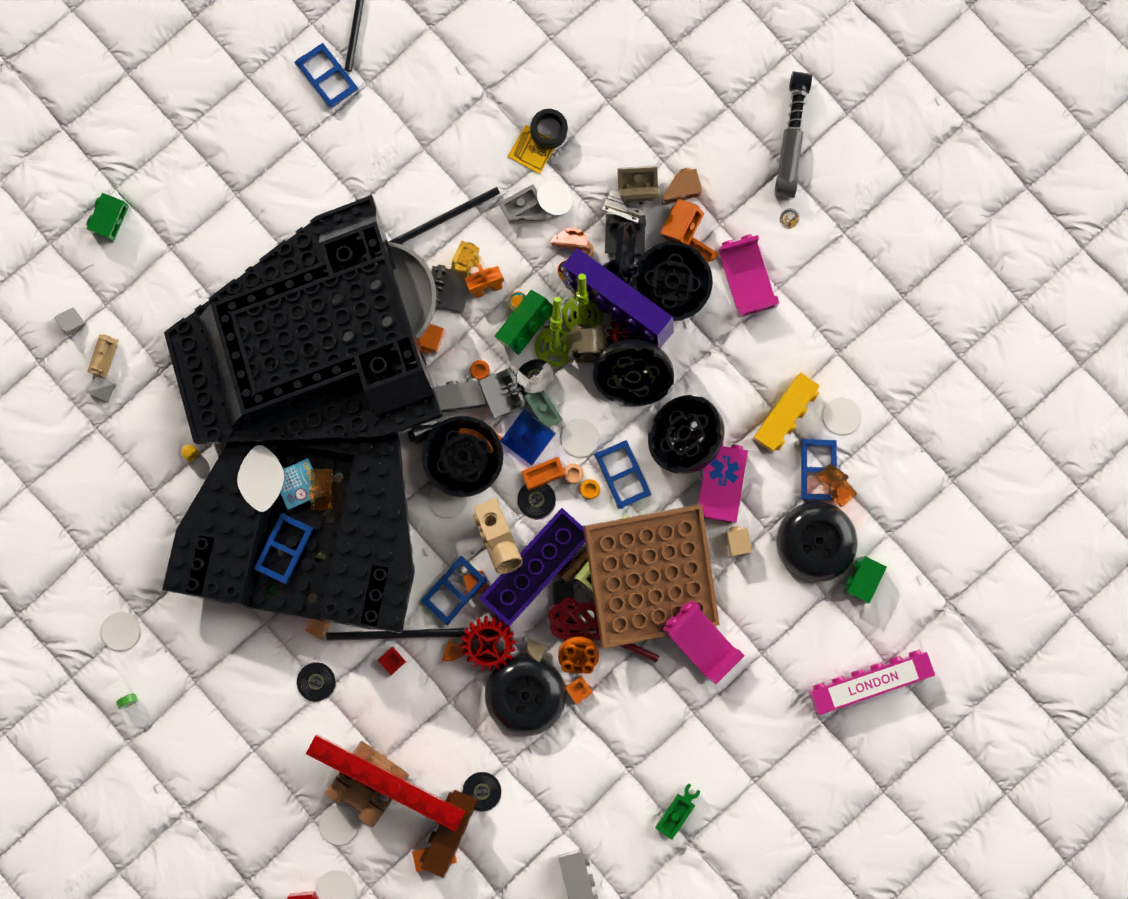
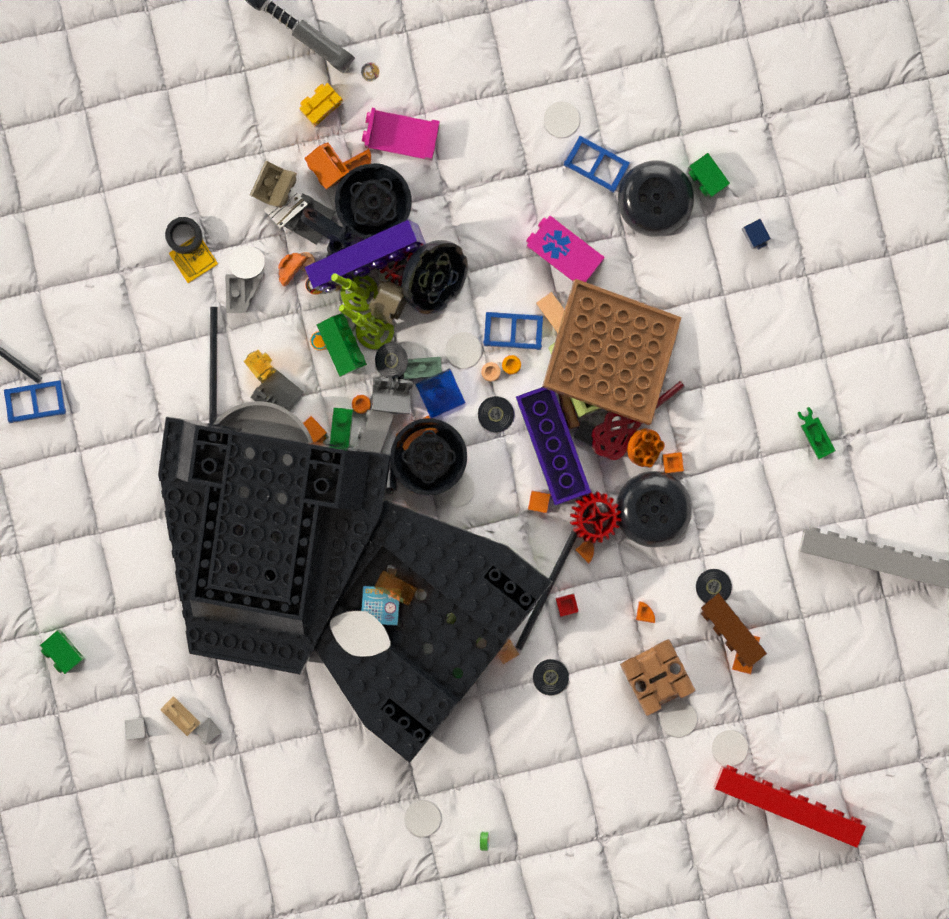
camera: 55 degrees left, 5 degrees up
(189, 452) = (302, 684): yellow hinge -> none
(296, 554) = (401, 632): blue window -> none
(385, 782) = (665, 659): red brick -> none
(422, 739) = (645, 613): none -> orange tile
(447, 362) = (341, 427): none -> green brick
(464, 599) = (548, 518): blue window -> none
(484, 279) = (287, 359): orange hips -> none
(497, 537) = (512, 463): tan brick -> none
(535, 649) = (621, 481): dark tan tile -> none
(543, 473) = (477, 396): orange tile -> none
(661, 499) = (552, 310): none -> light nougat tile
(674, 441) = (501, 268): black brick -> none
(683, 186) = (295, 147): medium nougat slope -> none
(702, 642) = (689, 339): dark pink panel -> none
(735, 189) = (320, 104): none -> yellow brick
(738, 541) = (621, 264): tan brick -> none
(786, 412) = (534, 165): yellow brick -> none
(835, 654) = (756, 234): none -> dark blue brick
(836, 484) = (617, 156): clear orange slope -> none
(871, 682) = (796, 216): brick -> none

